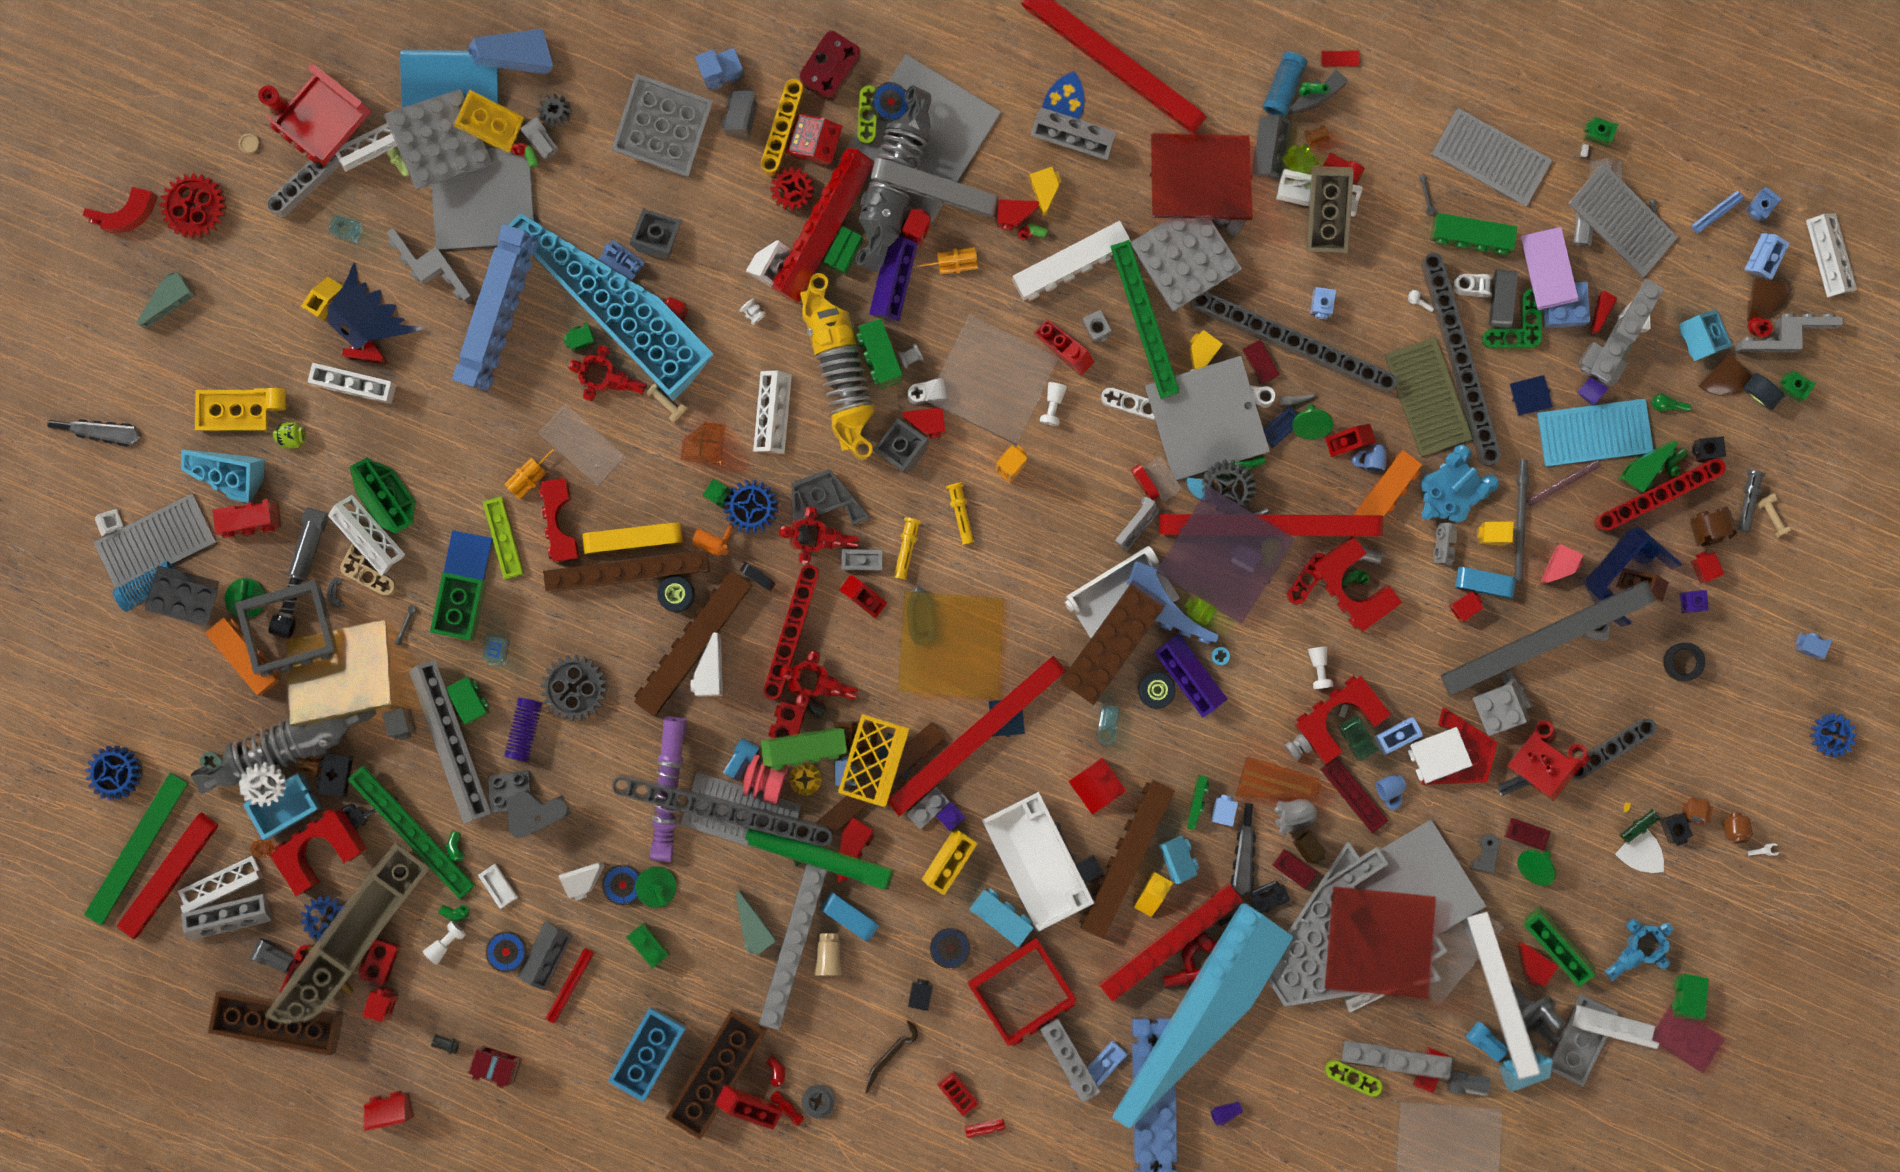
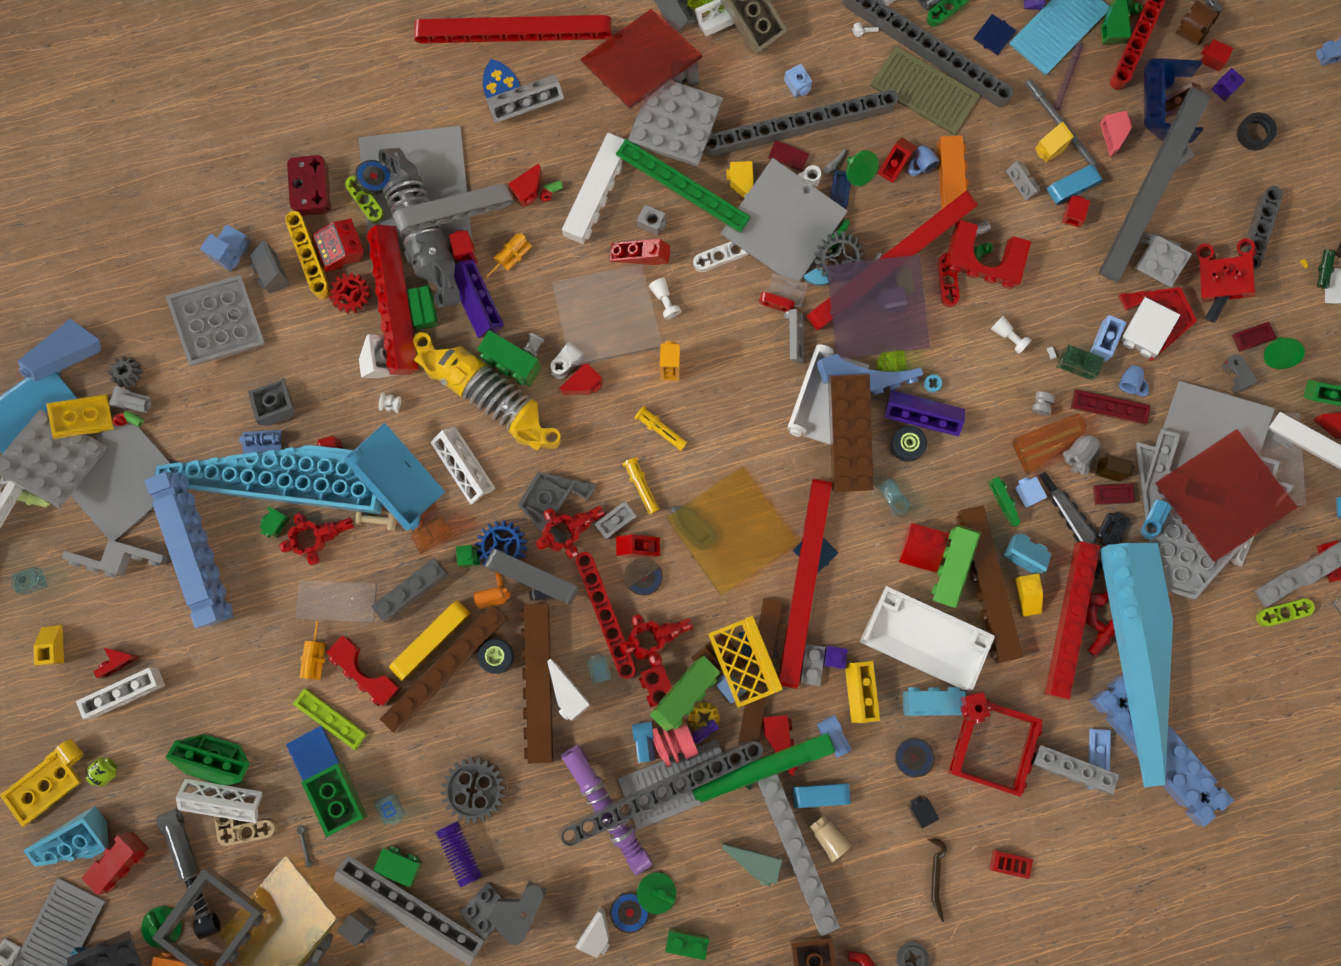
camera: 35 degrees left, 5 degrees down
(331, 593) = (227, 867): dark grey piece -> none
(363, 314) = (90, 633): dark blue piece -> none
(648, 484) = (410, 590): none -> dark grey brick
(703, 368) = (394, 476): none -> dark azure door
(751, 671) = (599, 669): none -> clear light blue brick
(755, 553) = (531, 576): none -> dark grey beam
(795, 790) = (704, 732): none -> dark purple axle
(816, 708) = (669, 657): pearl dark grey pin -> none
(848, 624) = (643, 576): none -> clear smoke tile
(899, 880) = (834, 728): none -> medium blue piece
(902, 446) = (579, 413): dark grey slope -> none
(984, 1128) = (1053, 874): red axle -> none
(1028, 938) = (968, 708): none -> red brick
(1045, 186) = (533, 152): yellow slope -> none
(1089, 868) = (968, 612): black brick -> none
(1110, 822) = (956, 566): none -> bright green brick
(1224, 1113) = (1217, 716): dark purple cone -> none
(1308, 914) = (1156, 518): none -> dark azure piece
(1355, 693) = (1054, 332): red arch -> none
(1455, 487) = (997, 135): dark azure shield -> none

